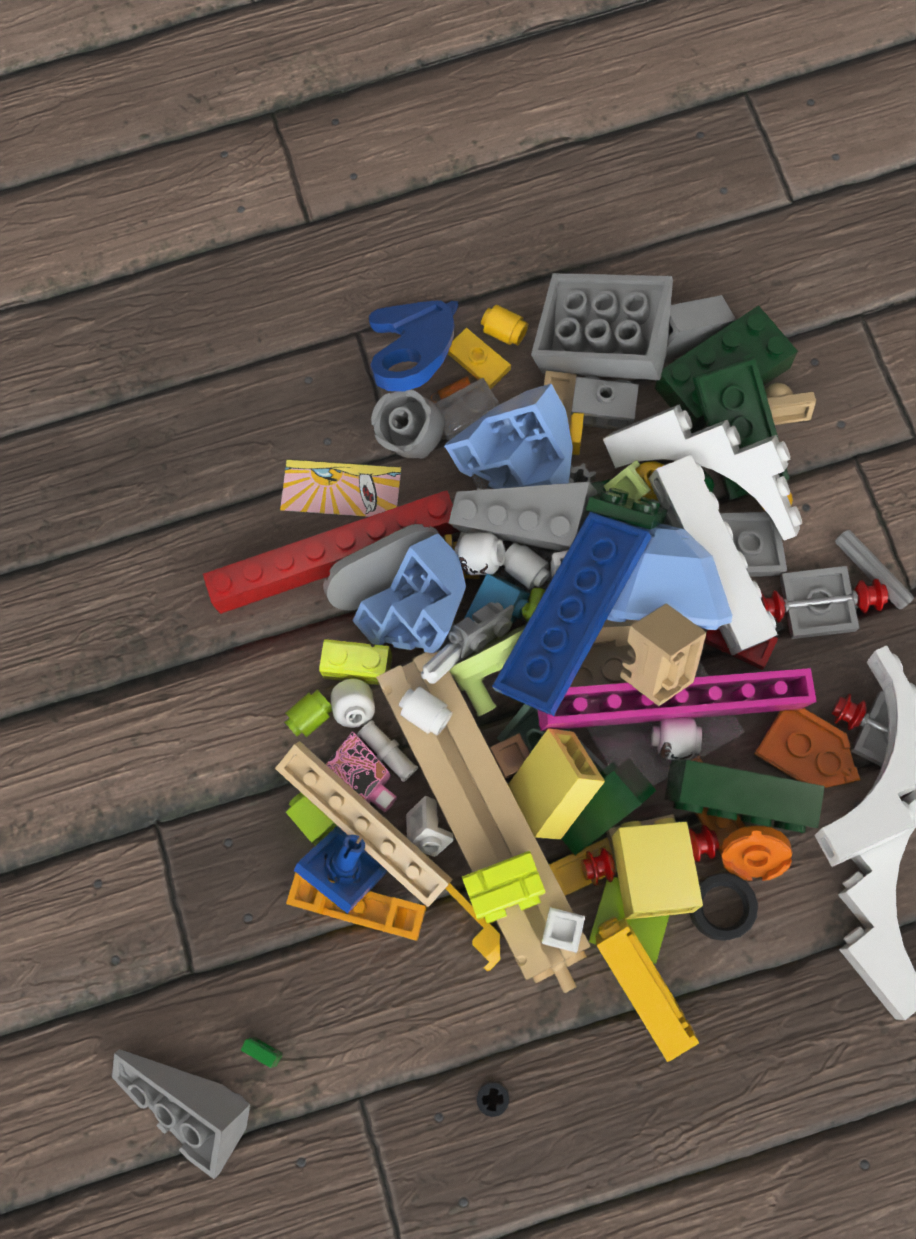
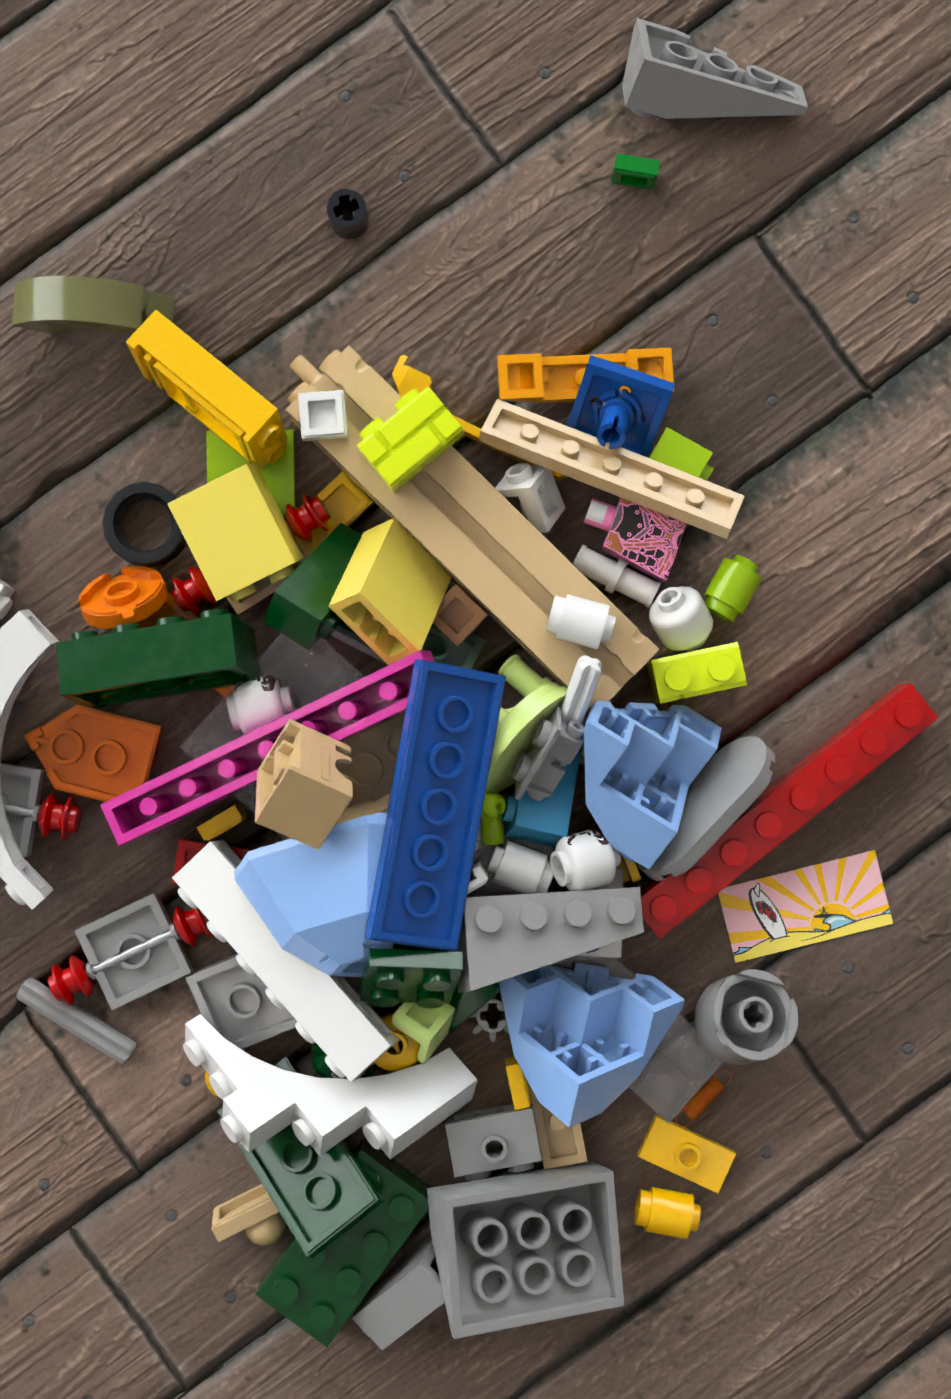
camera: 150 degrees right, 15 degrees up
(424, 339) = (764, 1143): blue animal -> none
(719, 1093) = (83, 302): none -> olive arch
(729, 667) = (222, 822): none -> yellow tile

